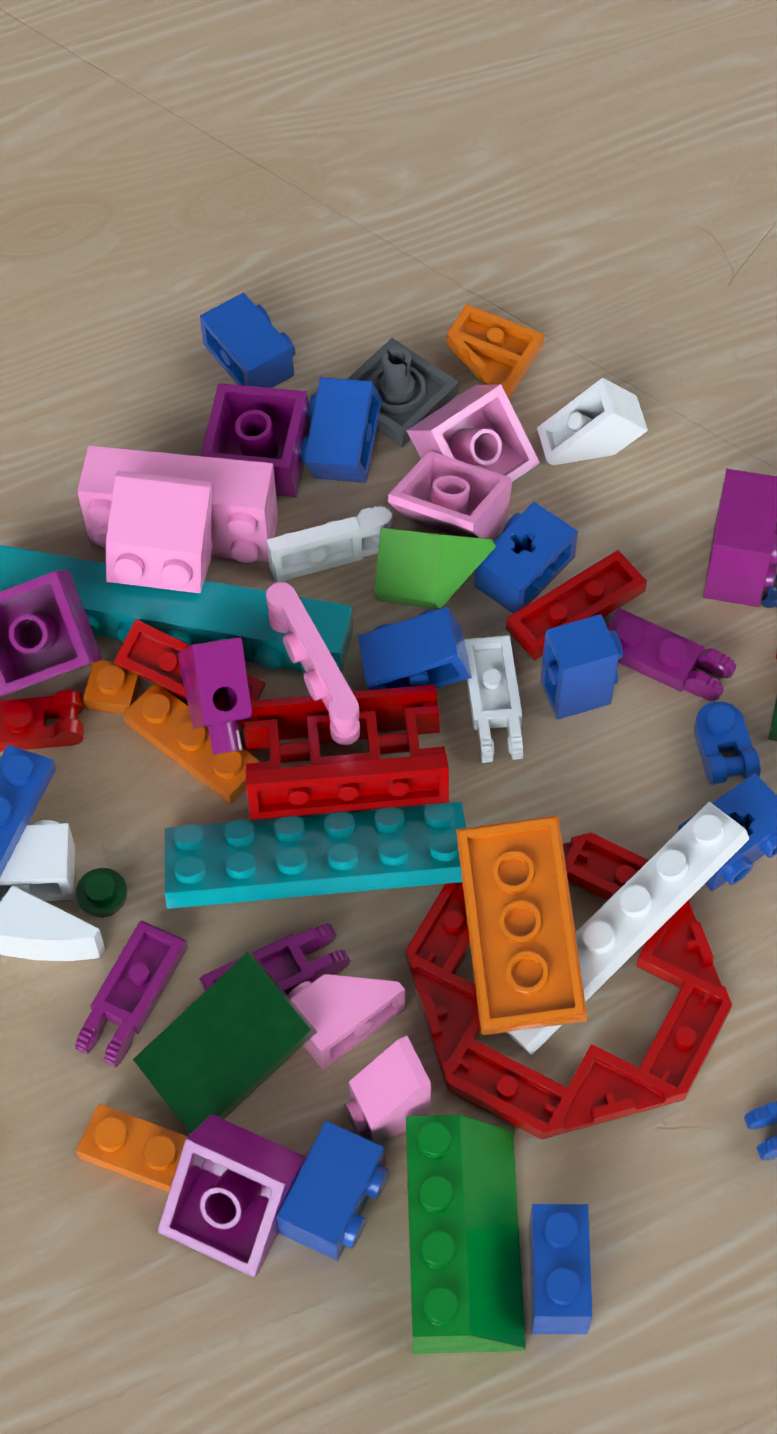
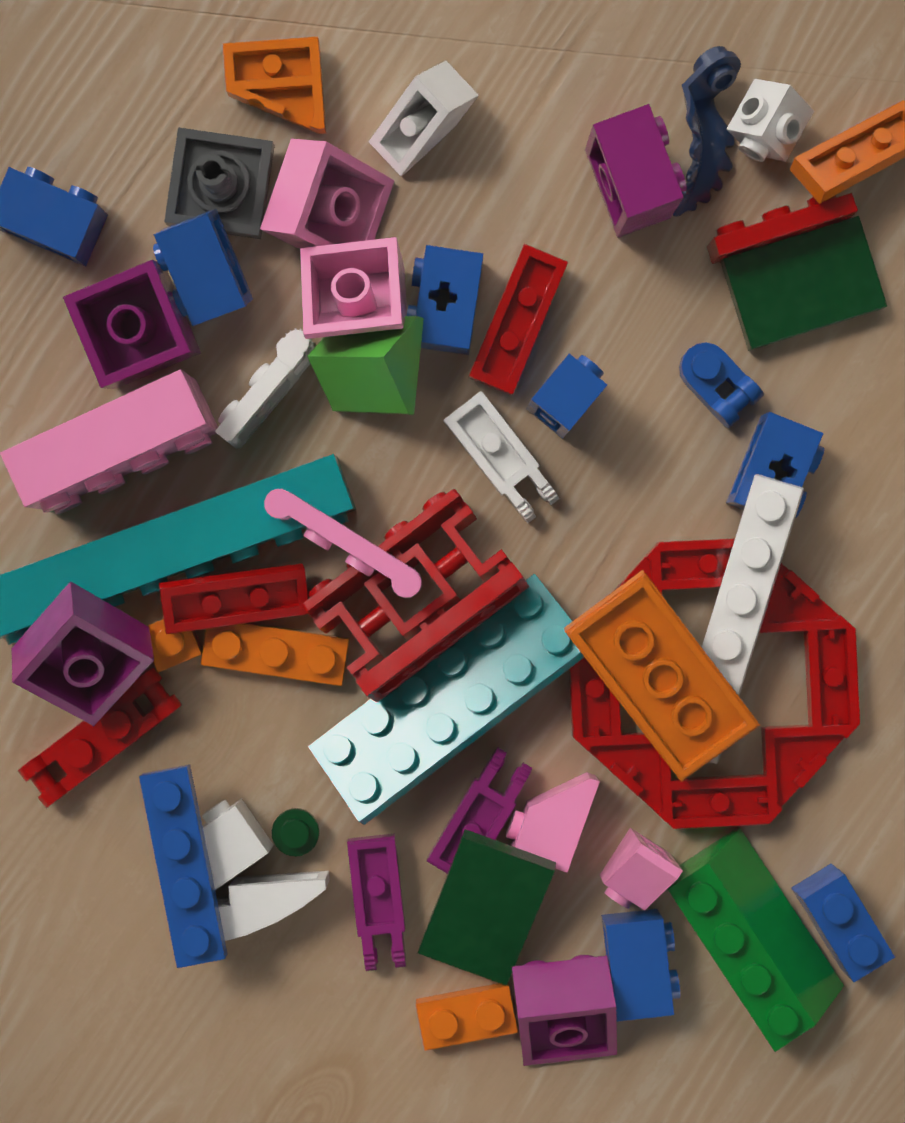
camera: 30 degrees left, 30 degrees up
(159, 532) = (127, 503): bright pink slope -> none
(221, 670) = (278, 617): magenta torso -> none
(415, 652) = (415, 465): blue brick -> none
(670, 656) = (616, 323): magenta hinge -> none

